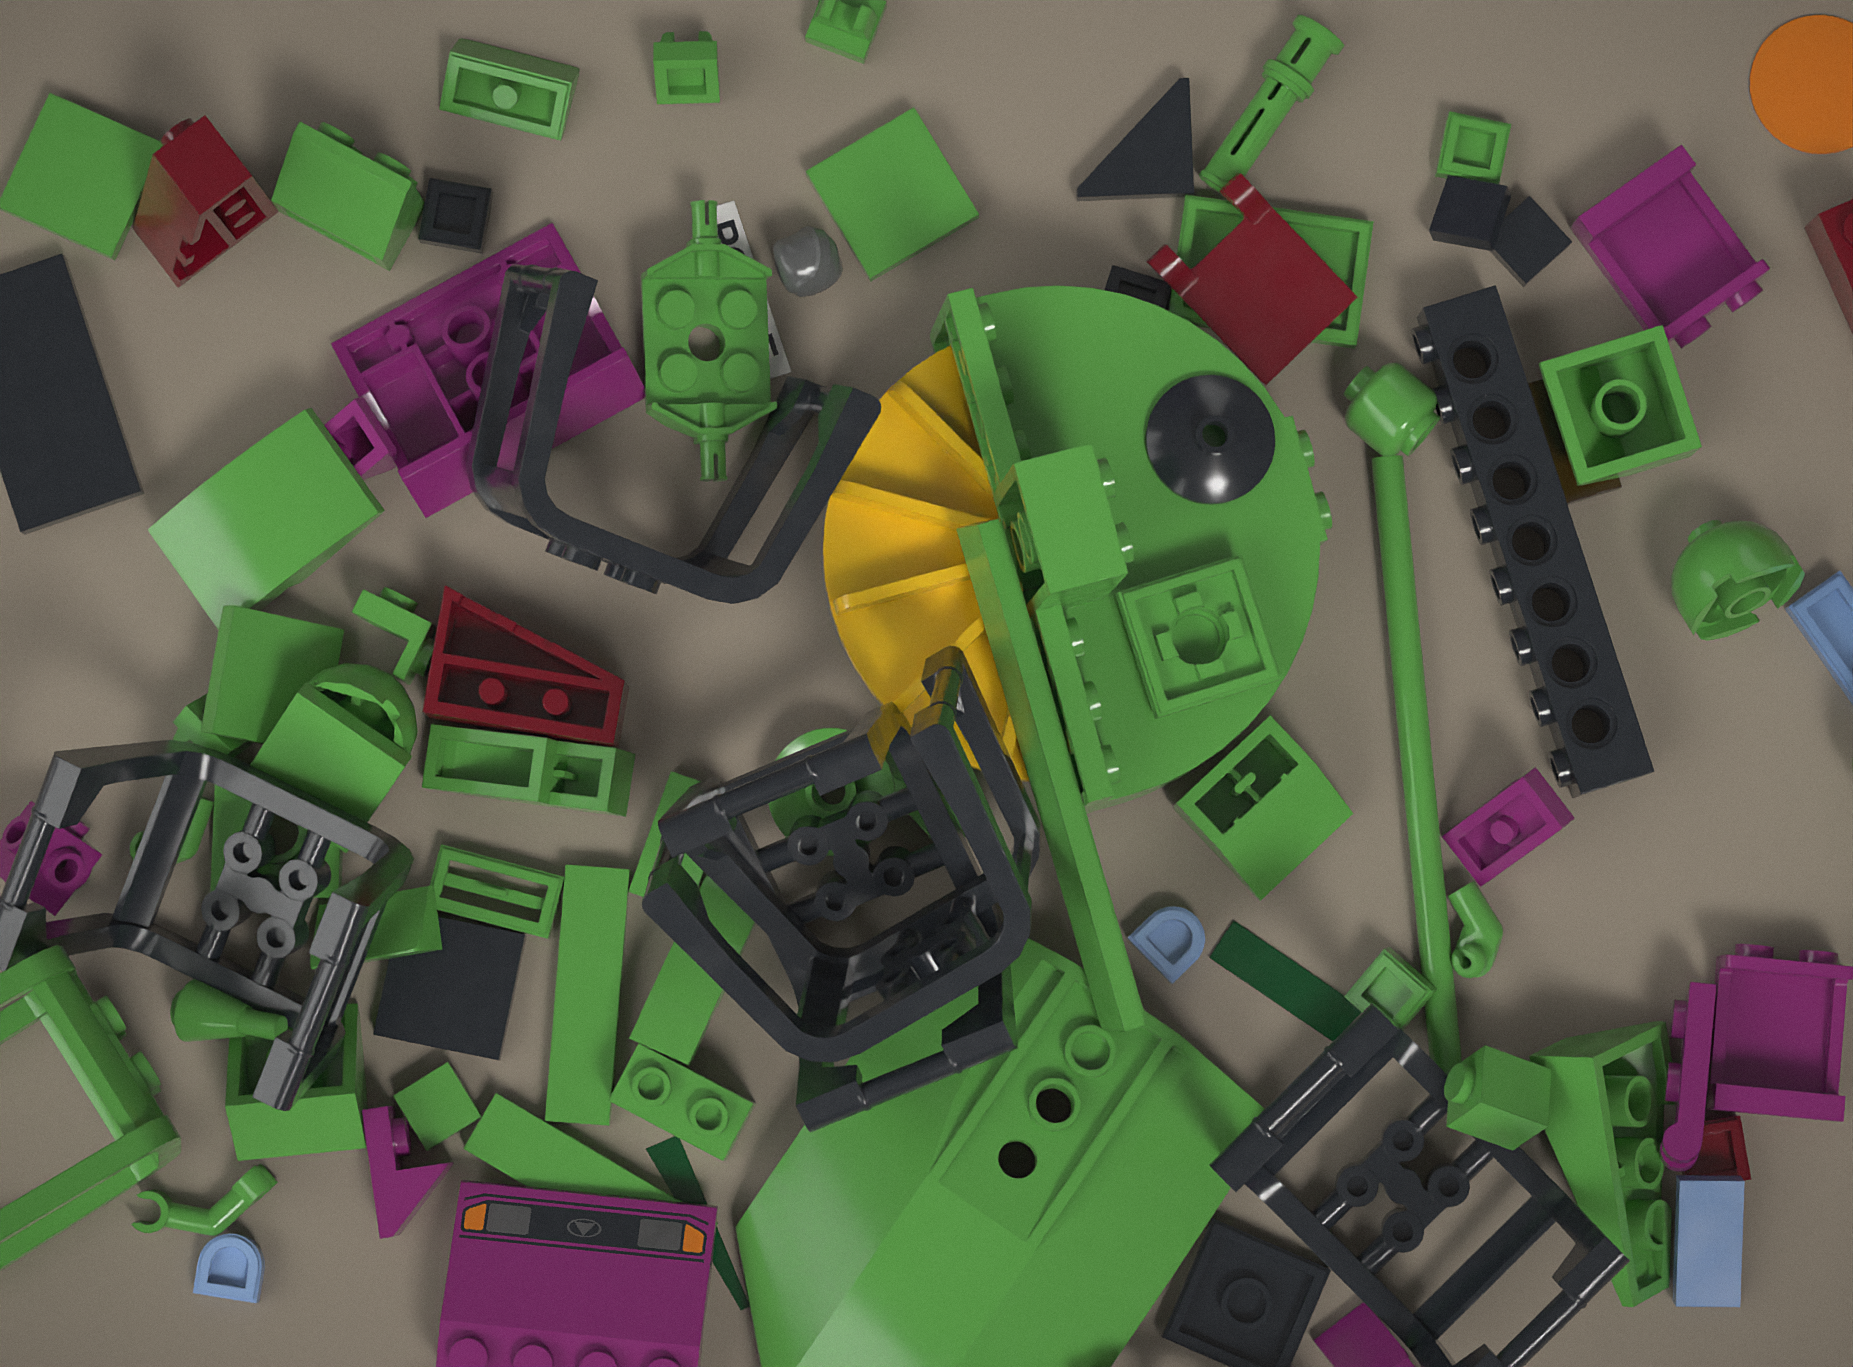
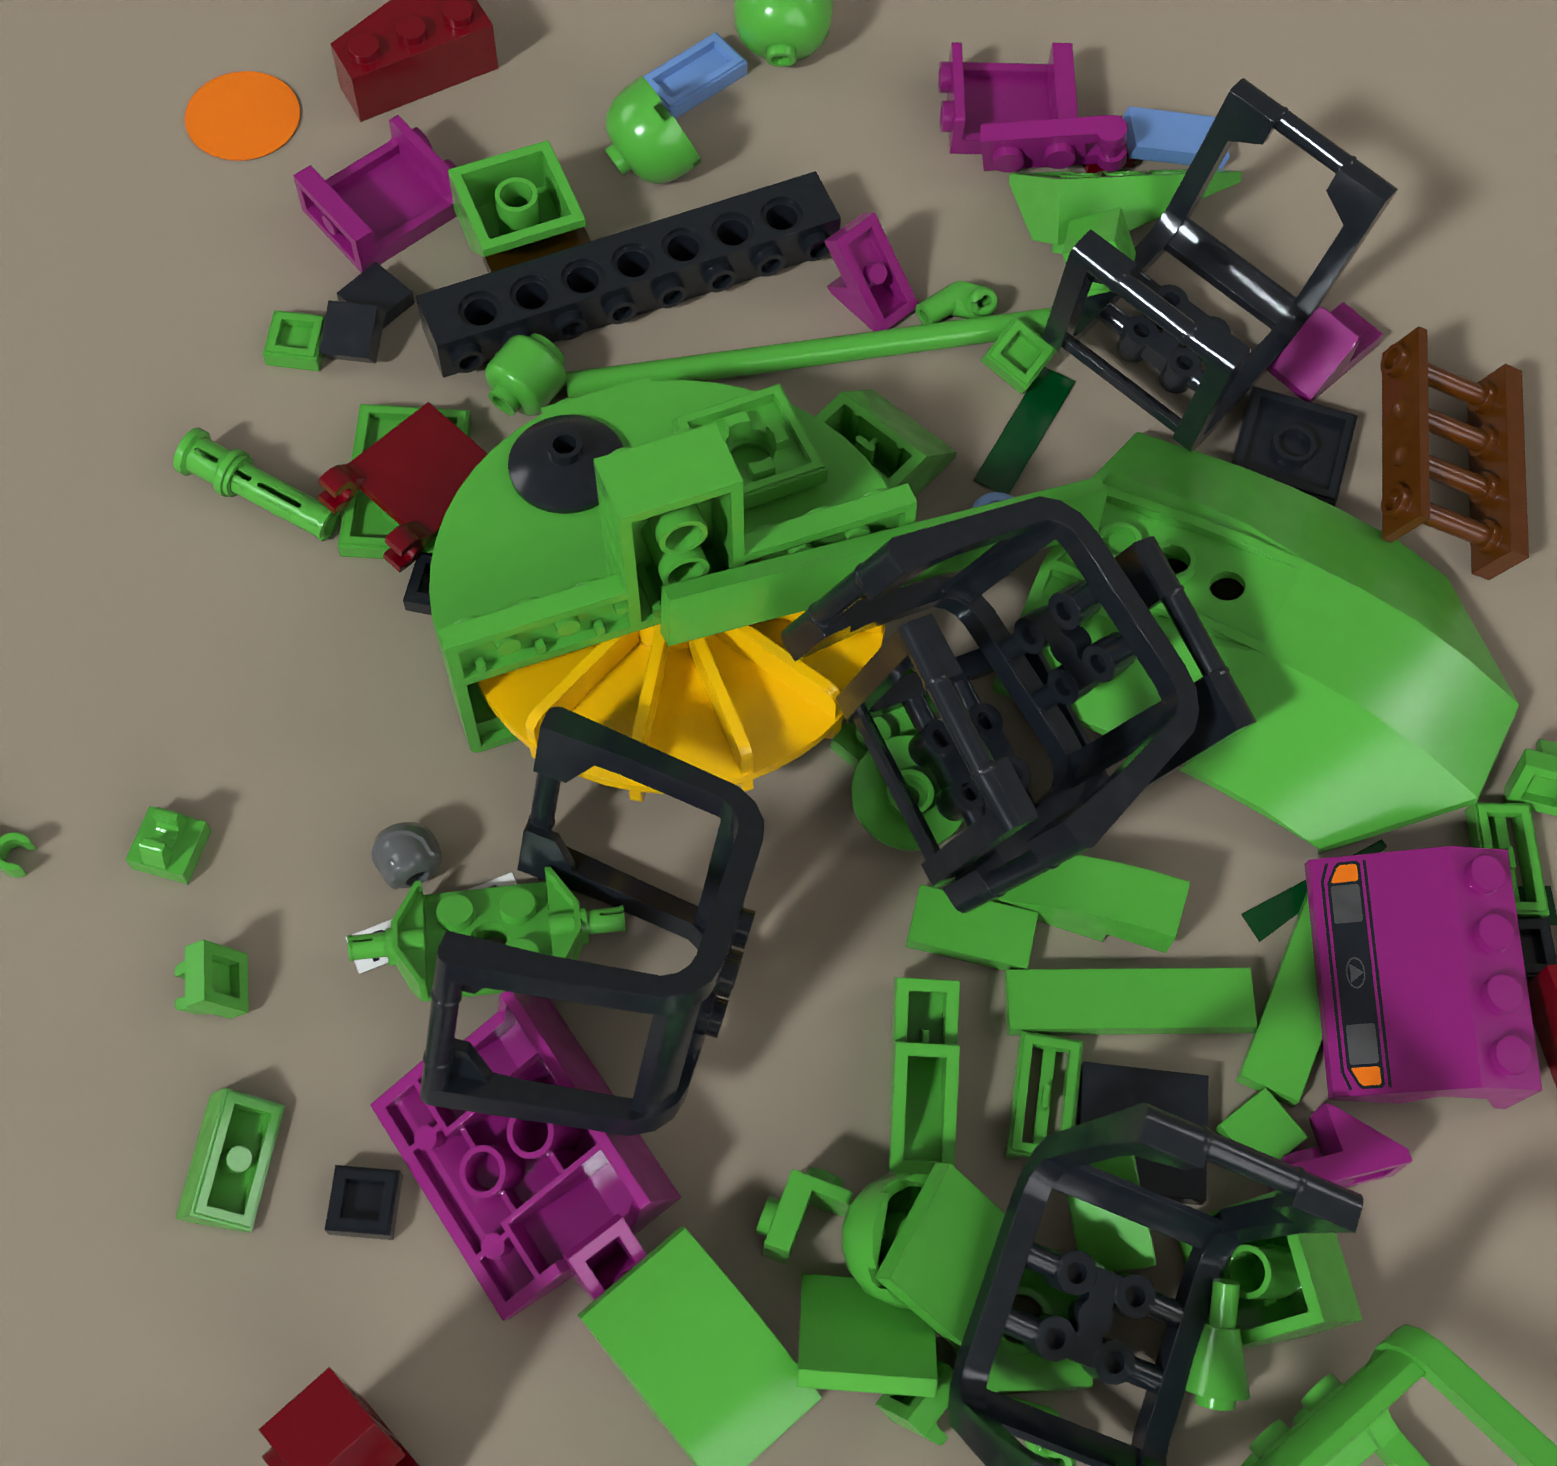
camera: 100 degrees left, 20 degrees down
(211, 1221) = (1383, 1314): bright green arm -> none
(230, 1268) = (1464, 1325): light blue tile -> none
(346, 195) = (343, 1301): bright green slope -> none
(515, 681) = (840, 1085): dark red wedge -> none
(682, 1102) = (1220, 897): bright green brick -> none
(892, 194) = (338, 791): bright green tile -> none
(1151, 158) = (301, 577): black tile -> none

